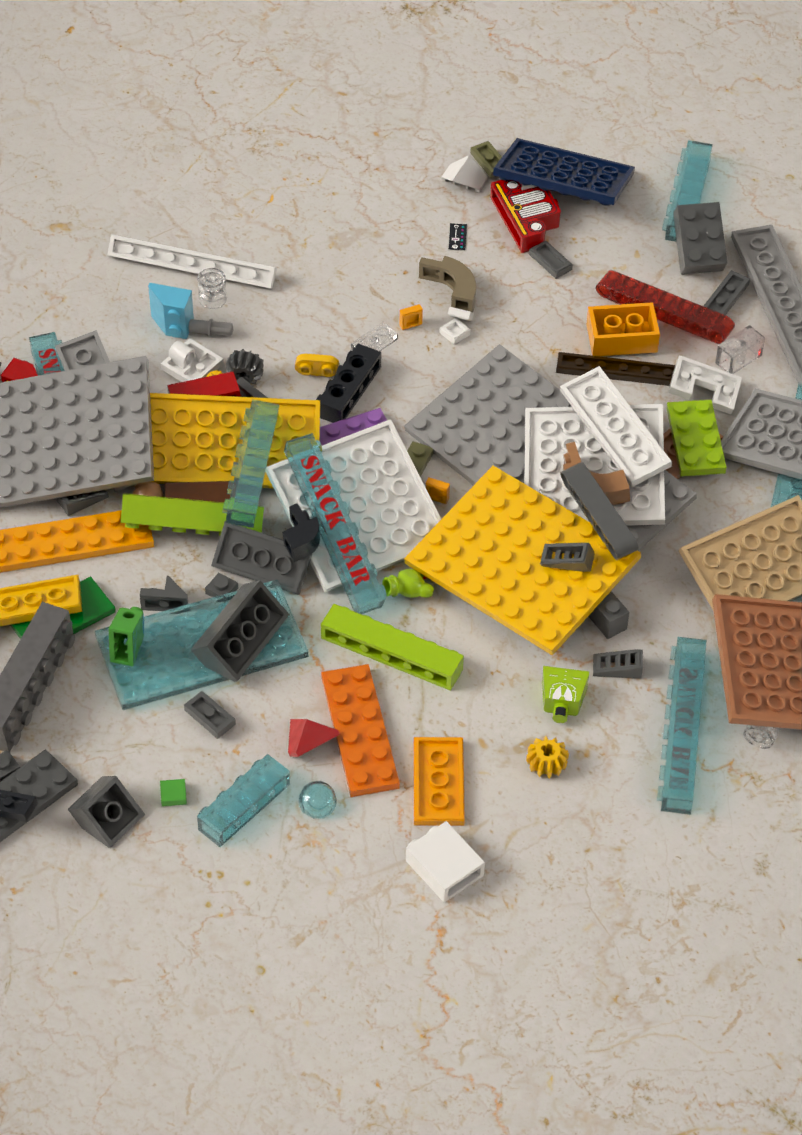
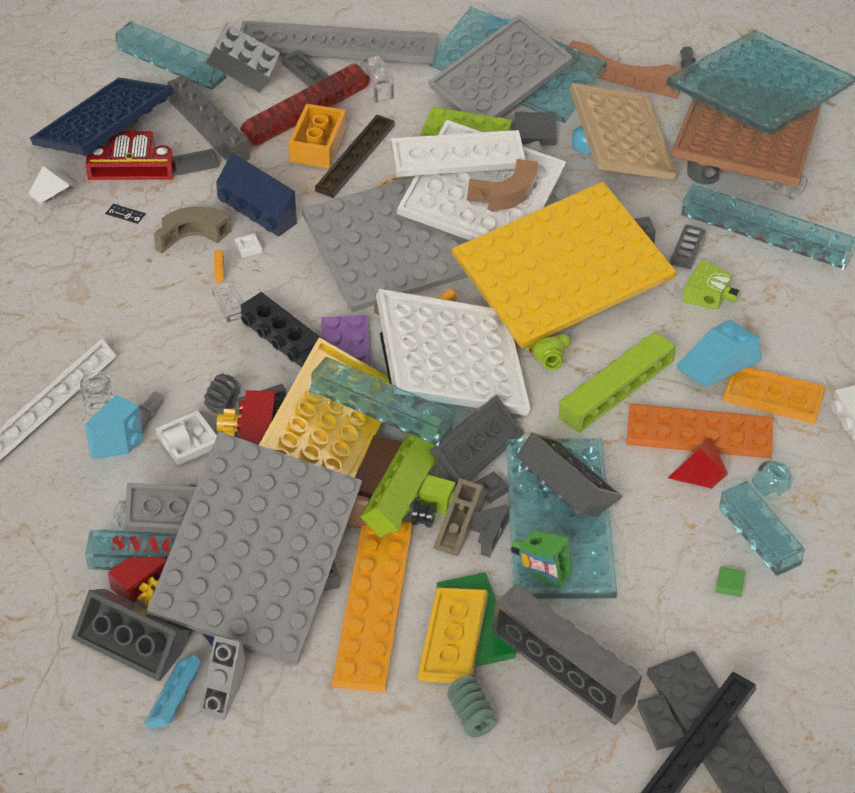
camera: 70 degrees left, 5 degrees down
(106, 810) = (740, 635): dark grey slope -> none
(164, 545) = (423, 514): none -> black wheel
(185, 568) = (457, 524): none -> dark tan slope
(190, 549) = (437, 491): none -> lime brick
(209, 714) = (649, 530): dark grey plate -> none
(304, 536) = (487, 386): black brick -> none
(316, 365) = (243, 345): yellow plate -> none
(335, 525) = (476, 367): clear light blue brick -> none
(459, 313) = (233, 232): white tile -> none
(463, 720) = (721, 354): none -> medium azure slope
(486, 156) = (33, 163): olive plate -> none
(510, 311) = (257, 195): none -> dark blue slope
(547, 757) = (776, 315): yellow gear -> none
(582, 558) = (596, 209): dark grey slope -> none
(599, 511) = (557, 184): dark grey beam -> none
(605, 247) = (208, 119): none -> flat silver brick
(690, 372) = (395, 110): white plate -> none
(741, 496) = (536, 127): none -> dark grey tile

